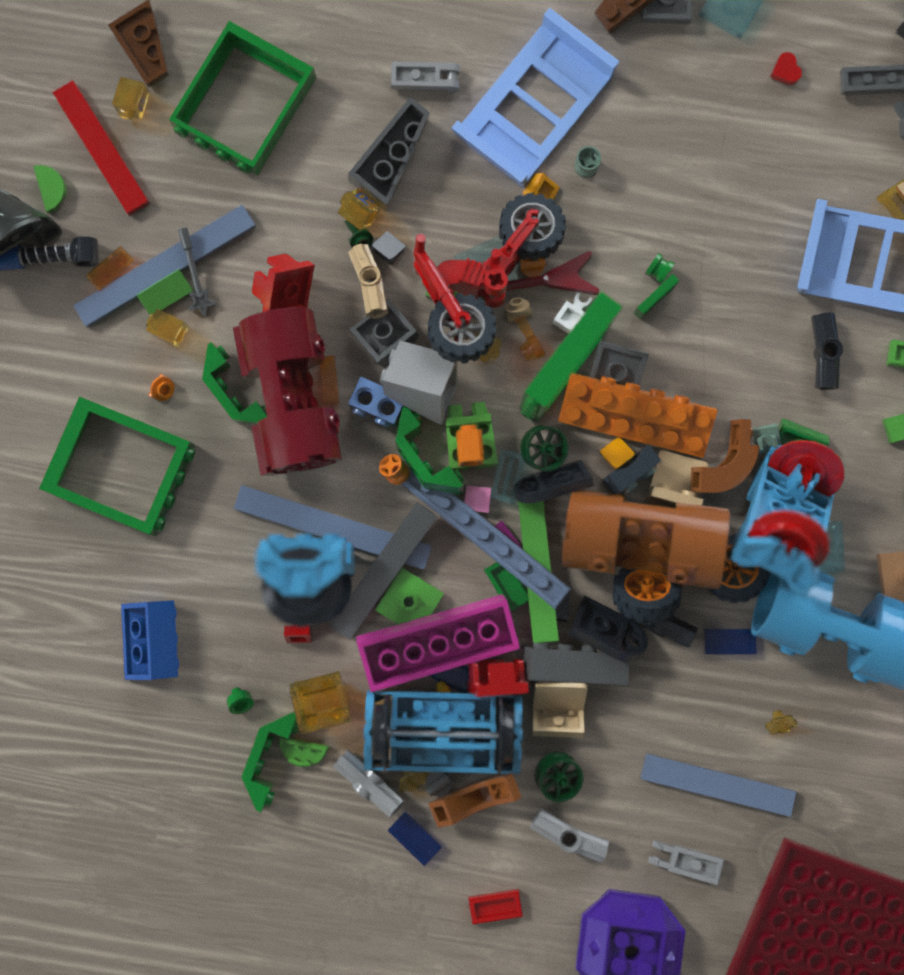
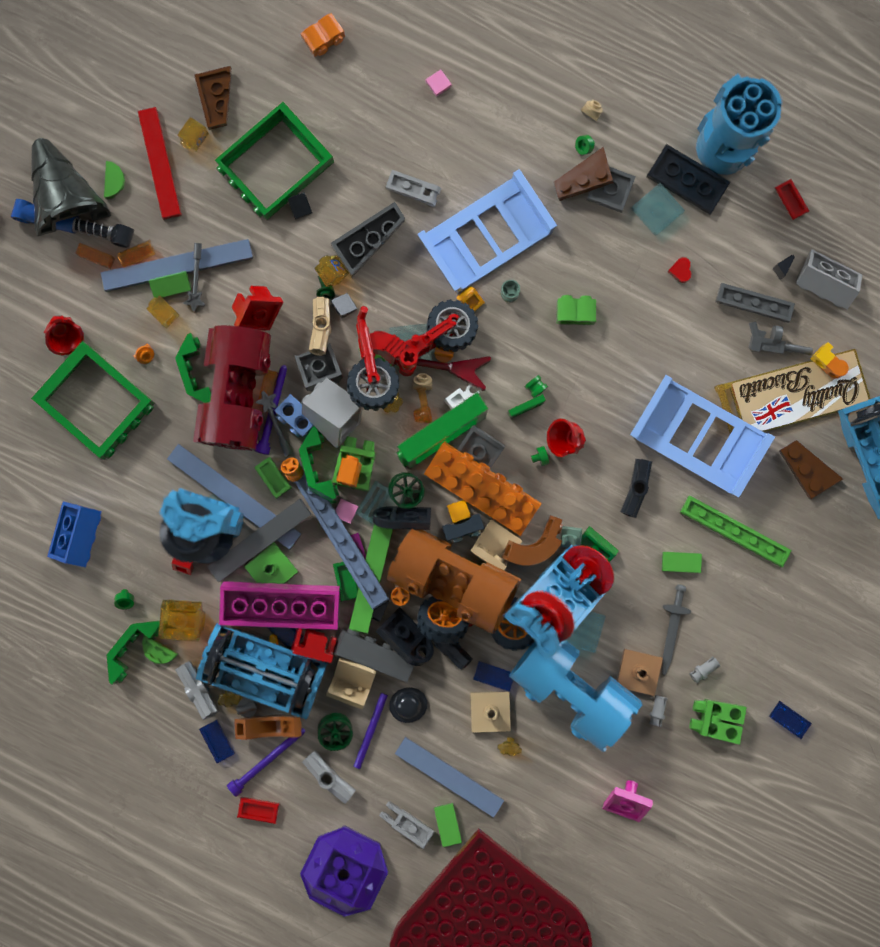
camera: 15 degrees right, 0 degrees up
(52, 397) = (63, 335): none -> red helmet
(59, 287) = (95, 255): none -> clear orange piece
(292, 143) = (299, 205): none -> black slope
(336, 398) = (267, 404): none -> dark grey piece
(348, 451) = (263, 445): none -> dark purple piece
(373, 488) = (273, 477): none -> bright green tile
(459, 885) = (237, 785): none -> dark purple piece
(576, 583) = (397, 596): none -> orange wheel
(601, 745) = (370, 730): none -> dark purple bar
(636, 712) = (408, 705): none -> black hat
(676, 159) = (576, 311): none -> bright green brick
(696, 351) = (541, 456): none -> green tile
(718, 318) = (565, 437): none -> red helmet
(736, 845) = (447, 824): none -> bright green tile
(740, 687) = (490, 711): none -> tan tile

